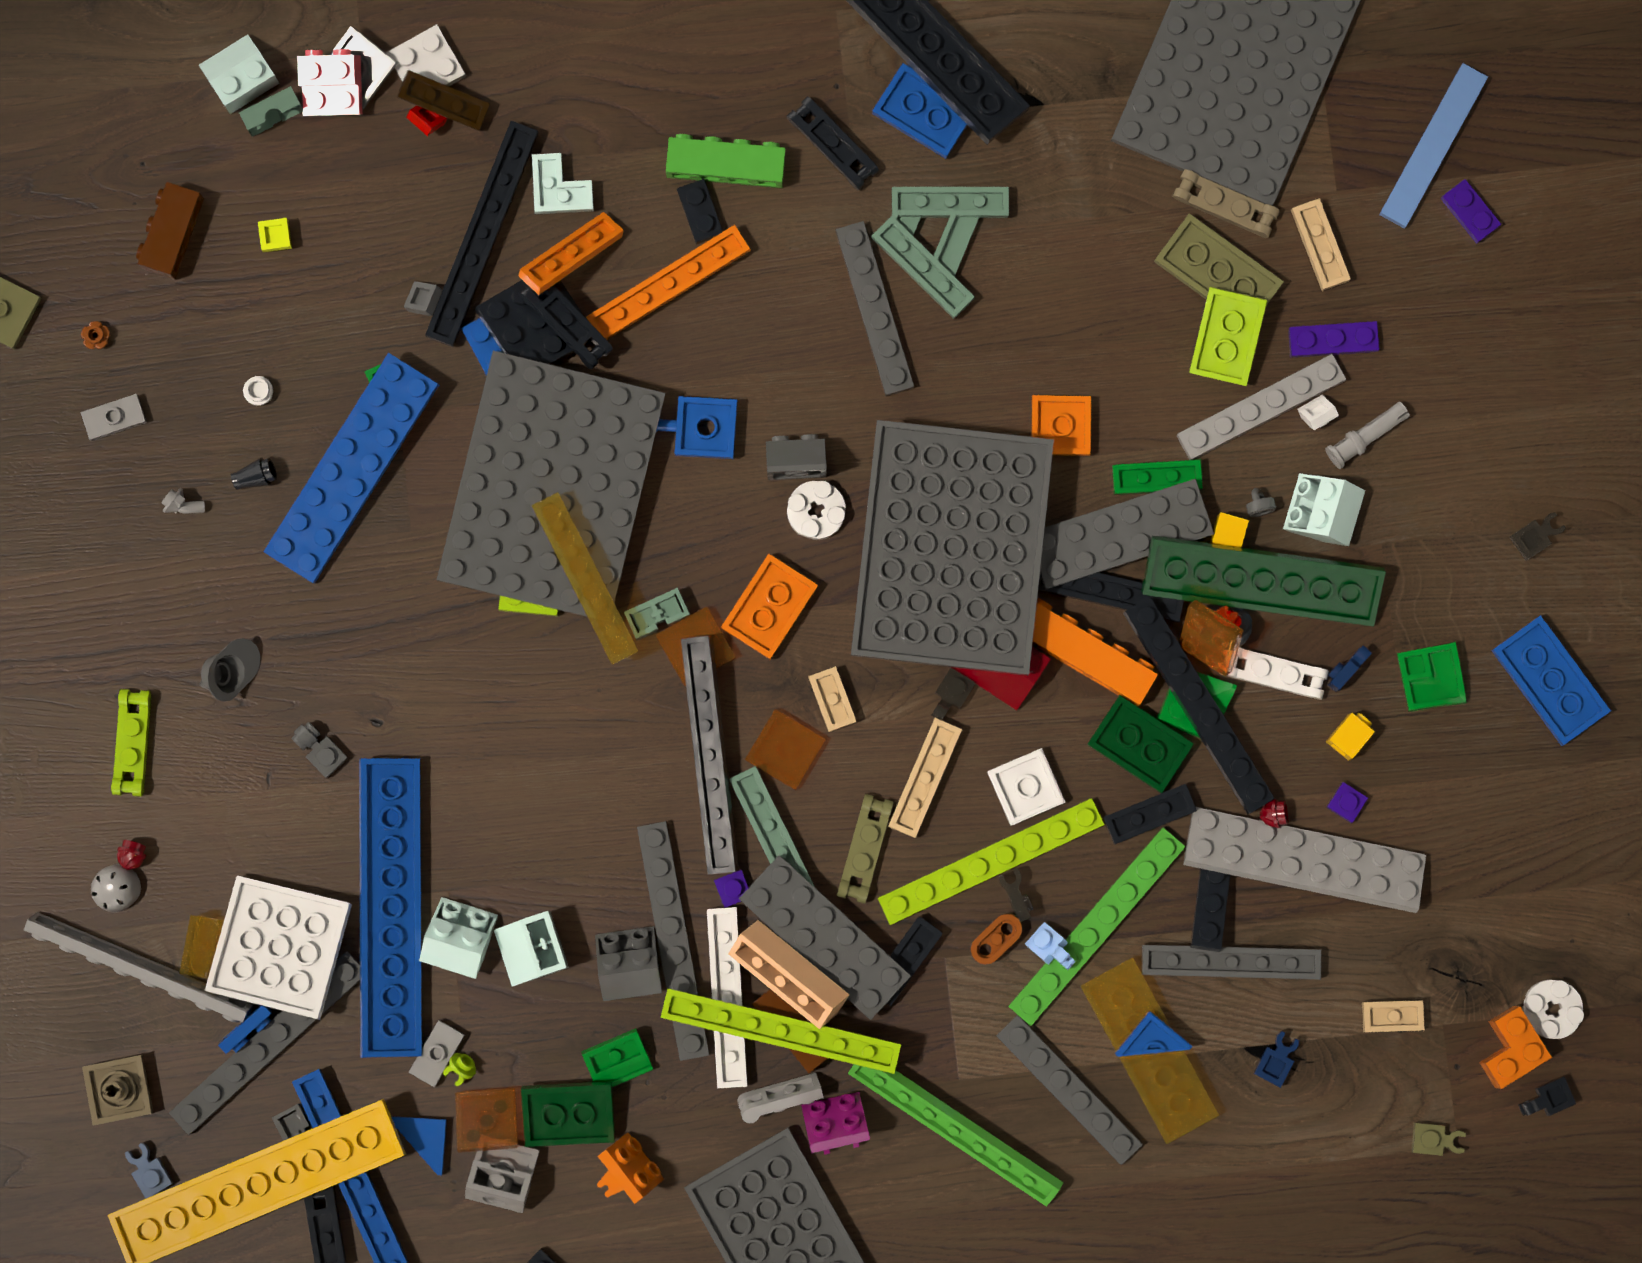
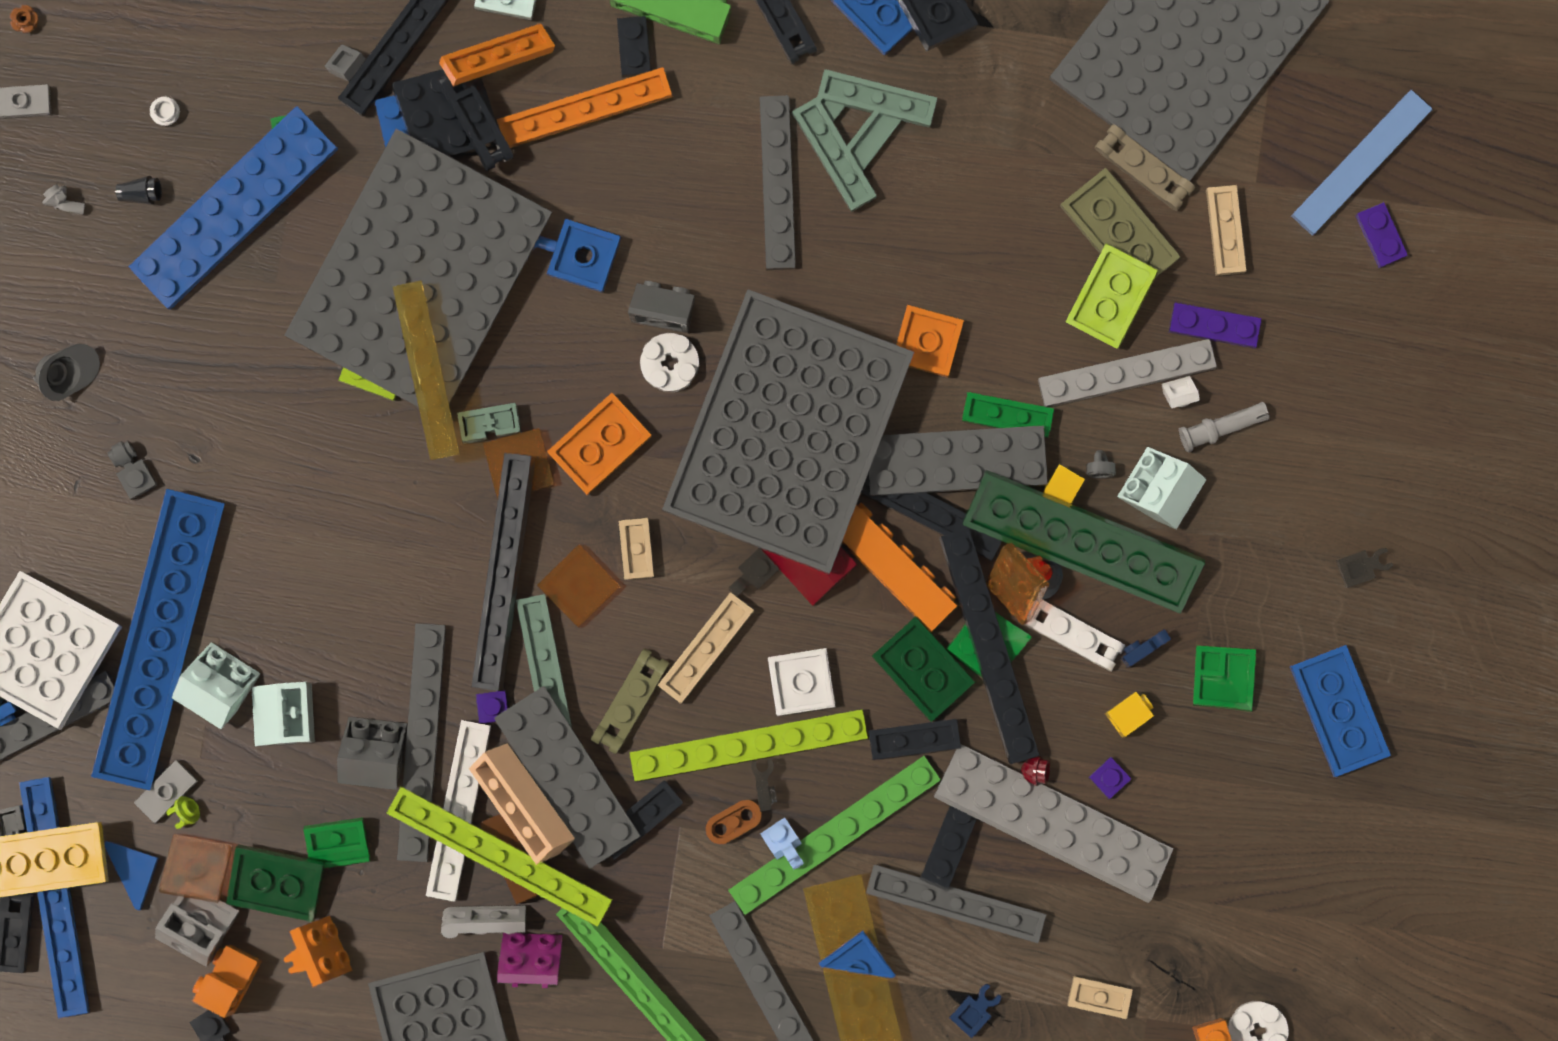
camera: 20 degrees right, 0 degrees up
(548, 1220) = (228, 982): none -> orange brick

